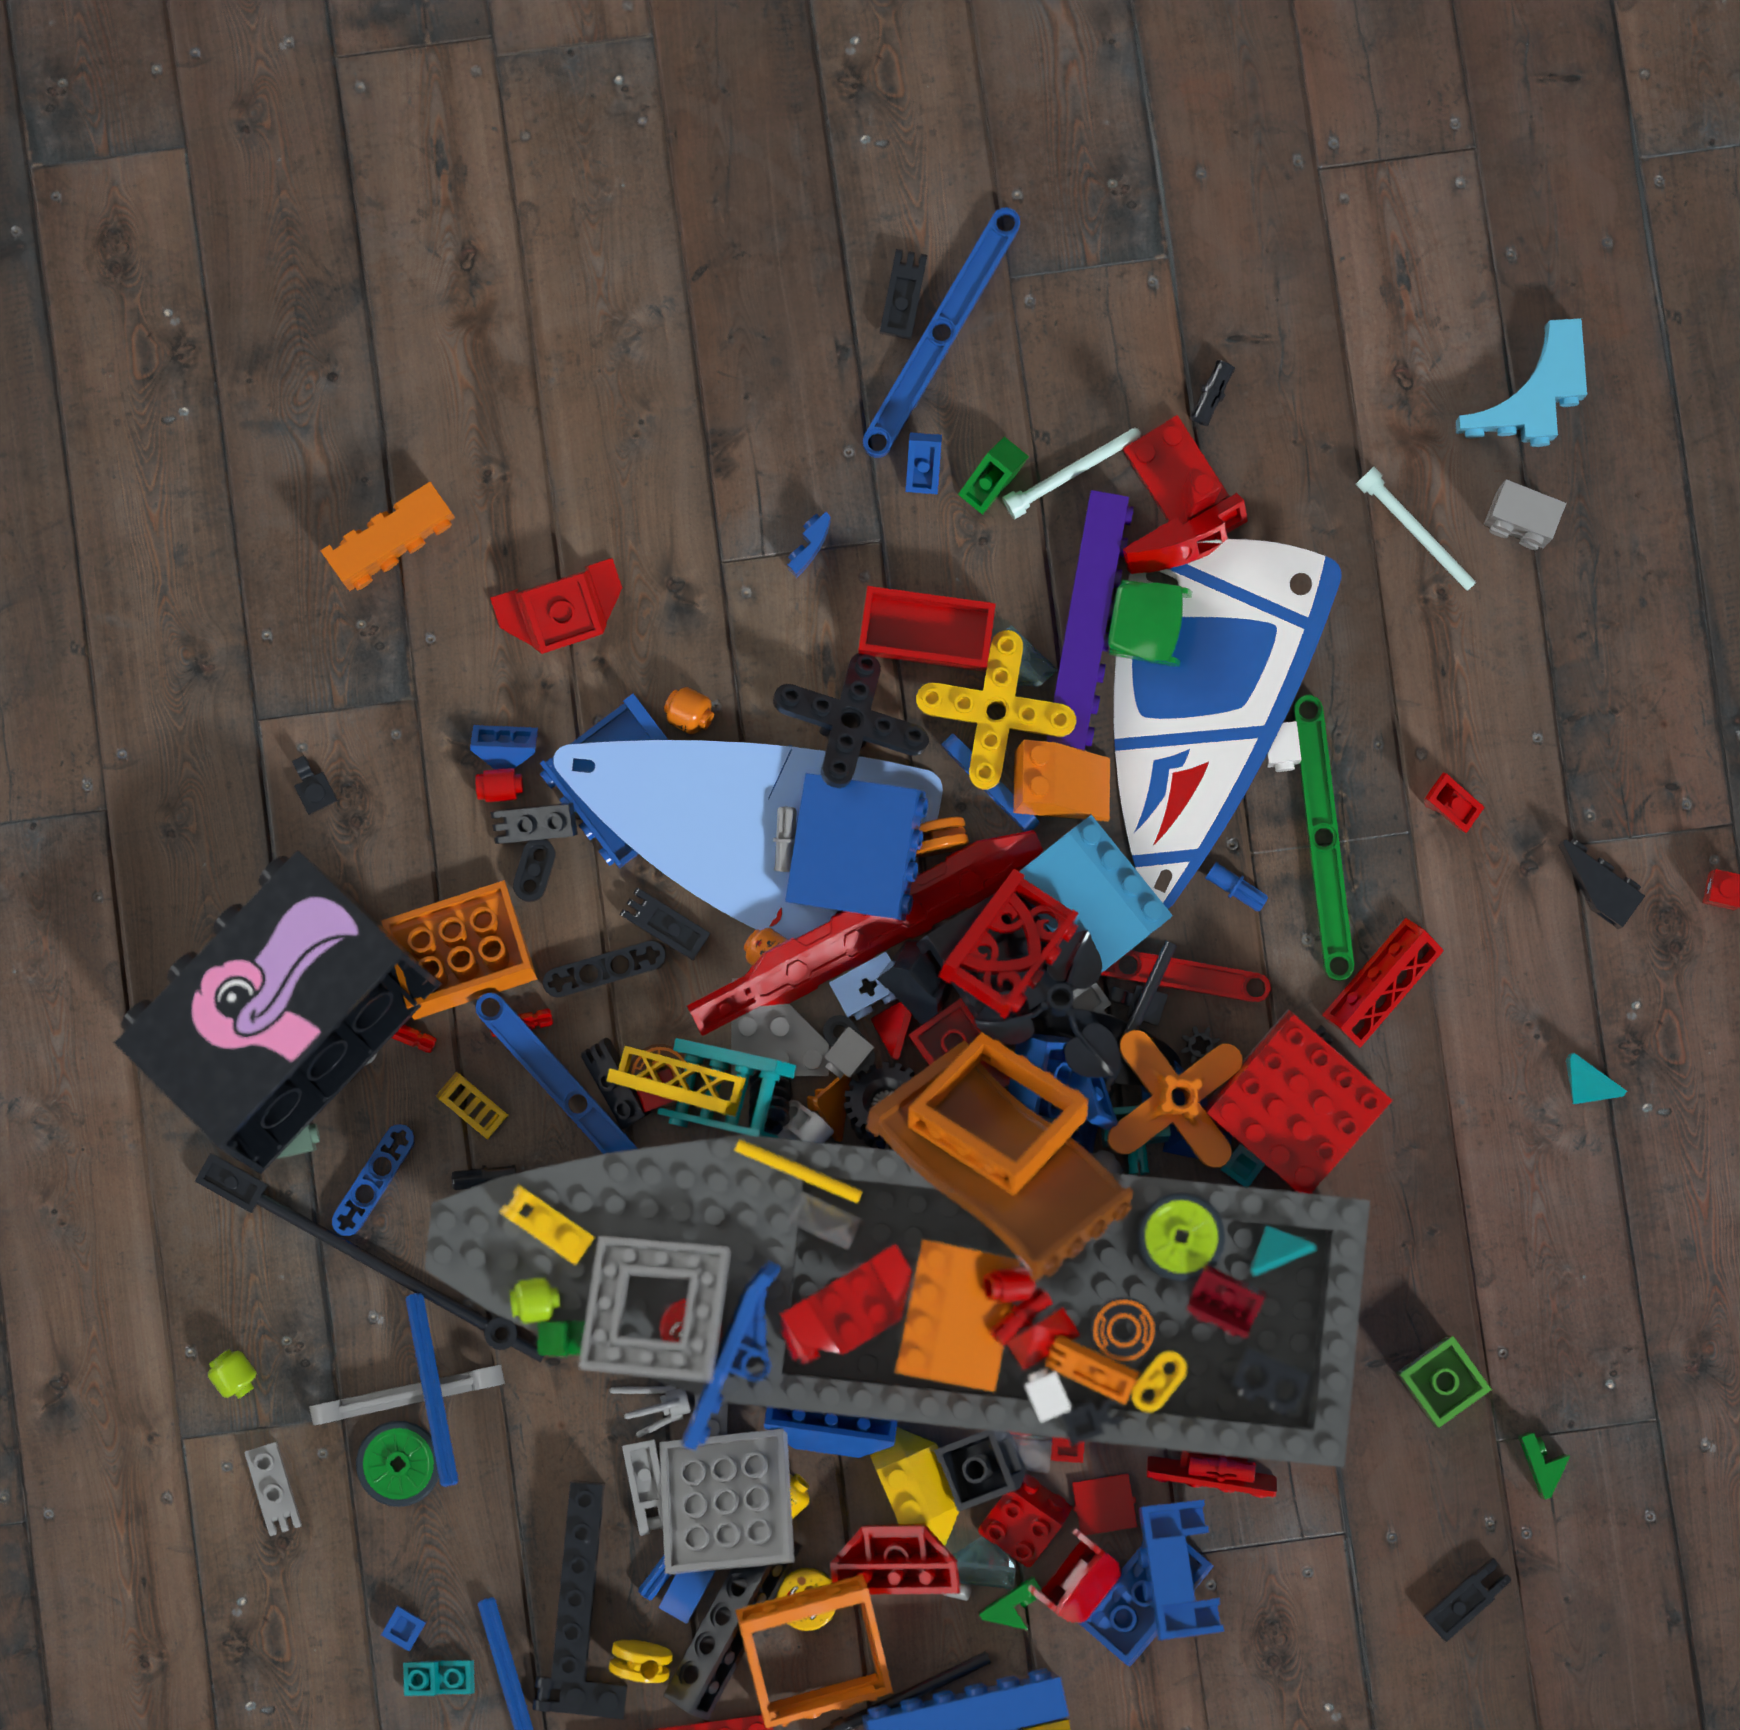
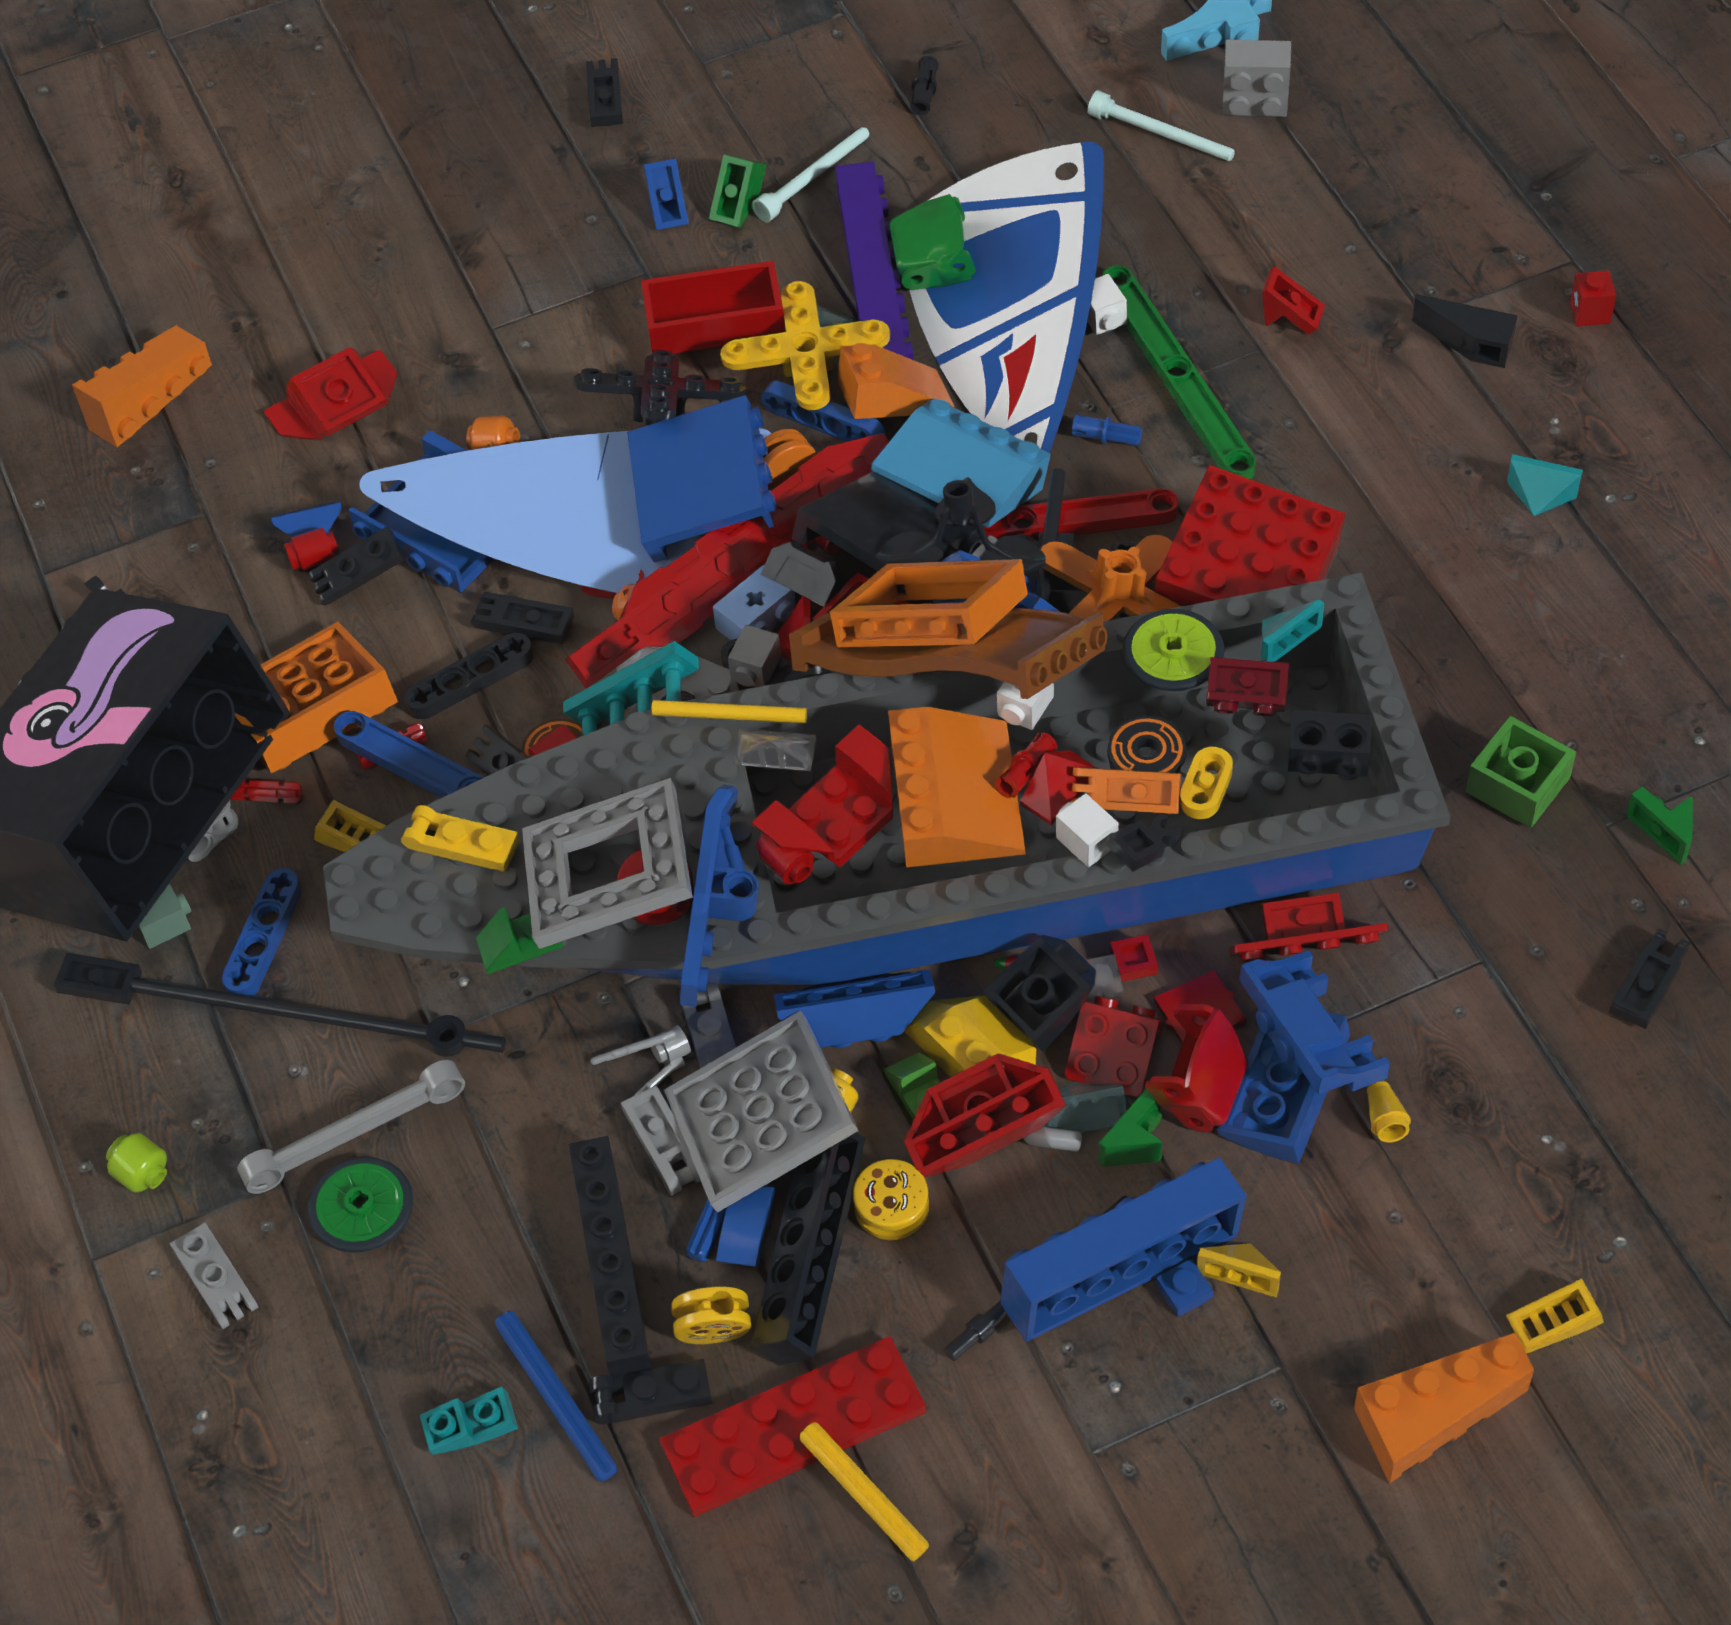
camera: 15 degrees left, 30 degrees down
(403, 1628) = (410, 1376): blue plate -> none
(431, 1389) = (379, 1102): blue axle -> none
(533, 1300) = (463, 910): lime head -> none
(534, 870) = (368, 617): black plate -> none
(670, 1091) = (569, 719): yellow fence -> none
(785, 838) = (625, 501): light grey axle -> none
(801, 1606) = (981, 1198): orange window -> none
(814, 535) = (575, 290): blue slope -> none
(858, 1500) = (911, 1079): none -> bright green slope
(952, 313) = (644, 128): blue beam -> none
(1007, 902) = (859, 507): red fence -> none
(1008, 1285) = (1000, 732): red brick -> none
(1175, 471) = (918, 149): red piece -> none
(1176, 542) = (942, 177): red slope -> none
(1212, 1653) = (1387, 1113): none -> yellow cone
(1222, 1468) = (1290, 925): red pin -> none
(1380, 978) = (1287, 451): red fence -> none

